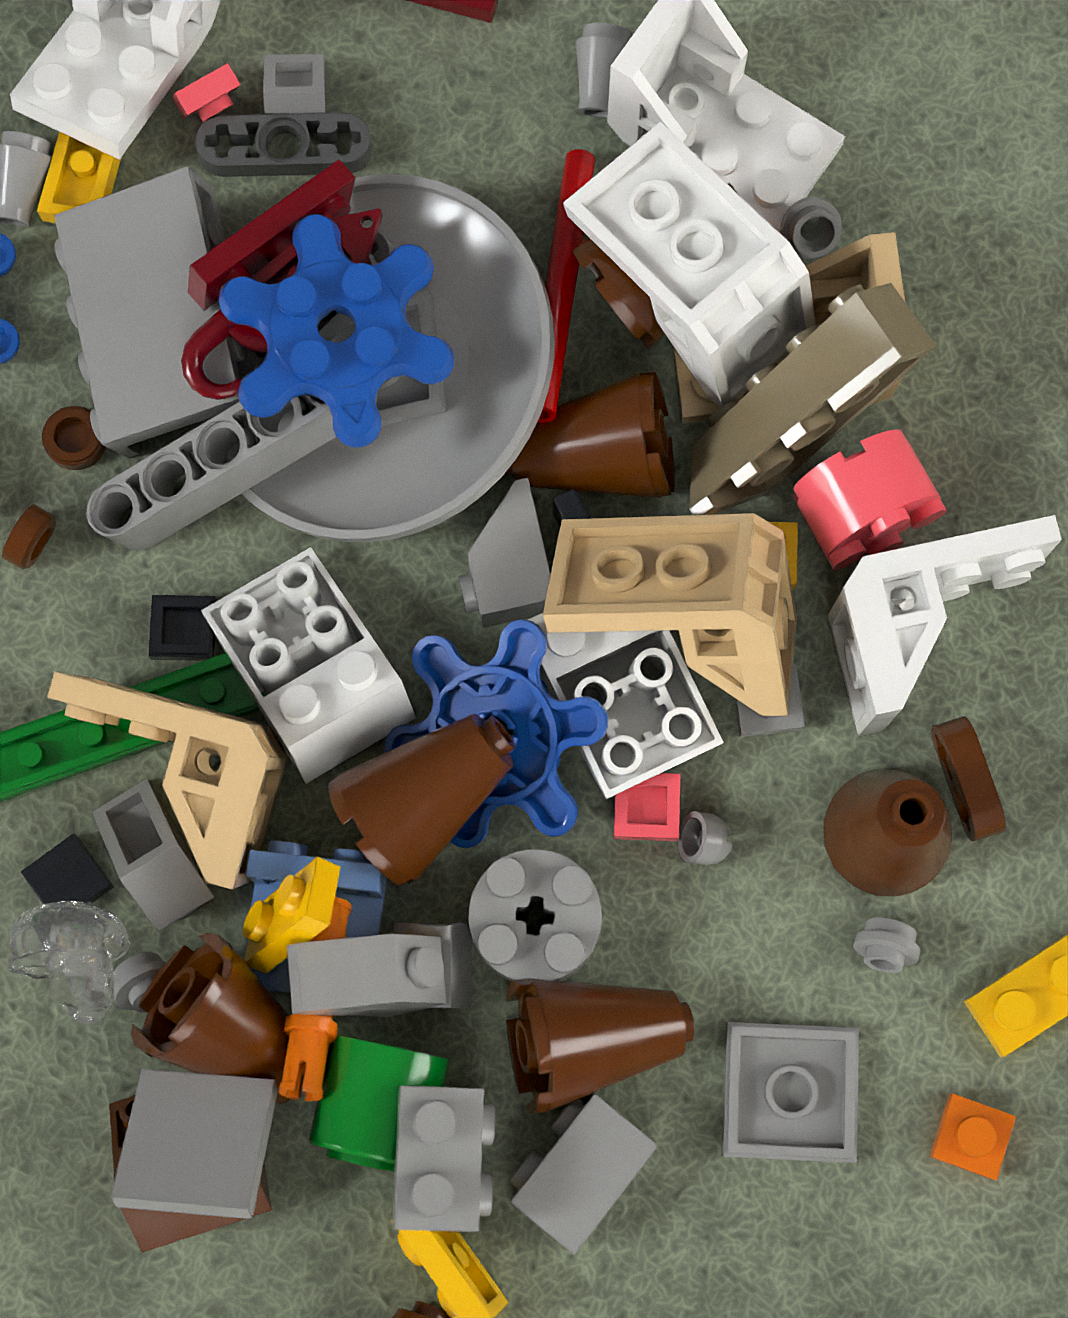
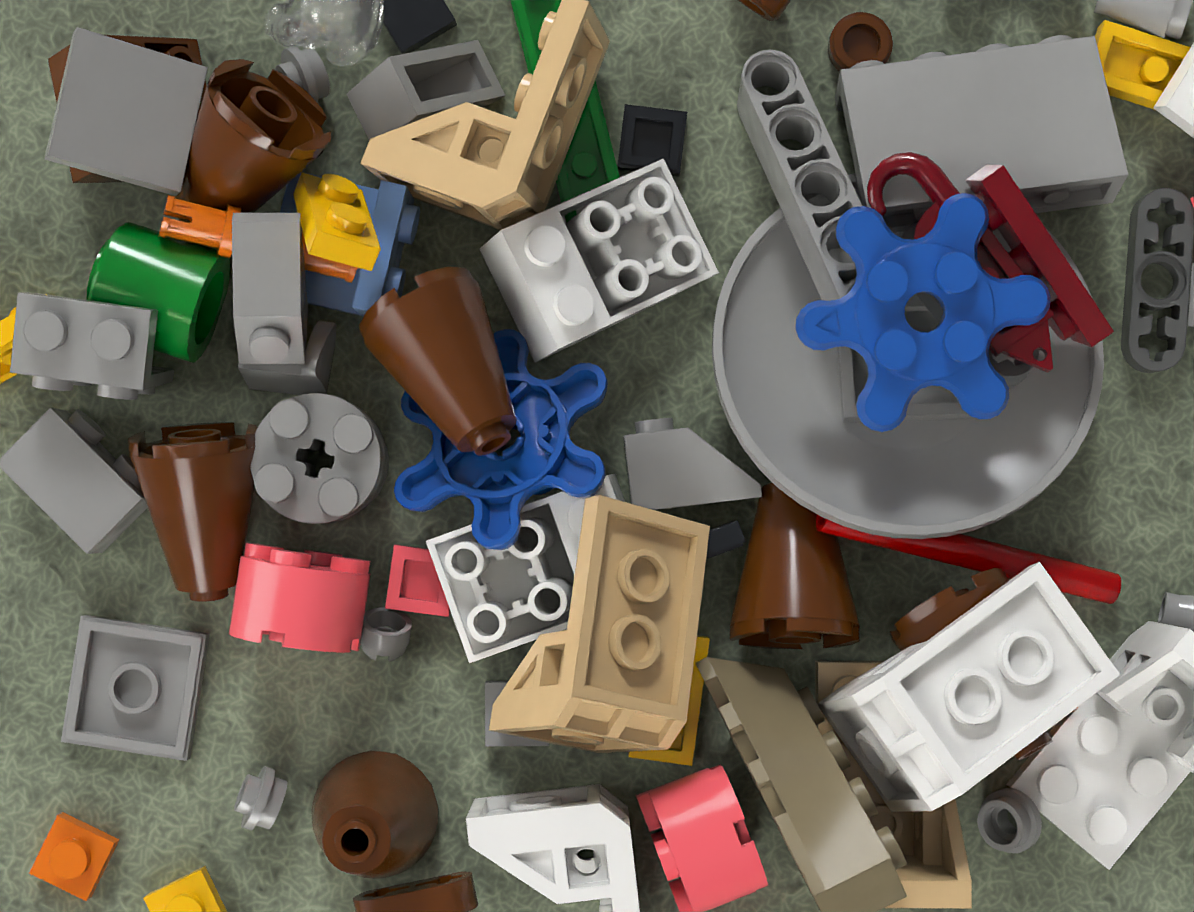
camera: 95 degrees right, 10 degrees up
(678, 918) = (300, 598): none -> coral brick

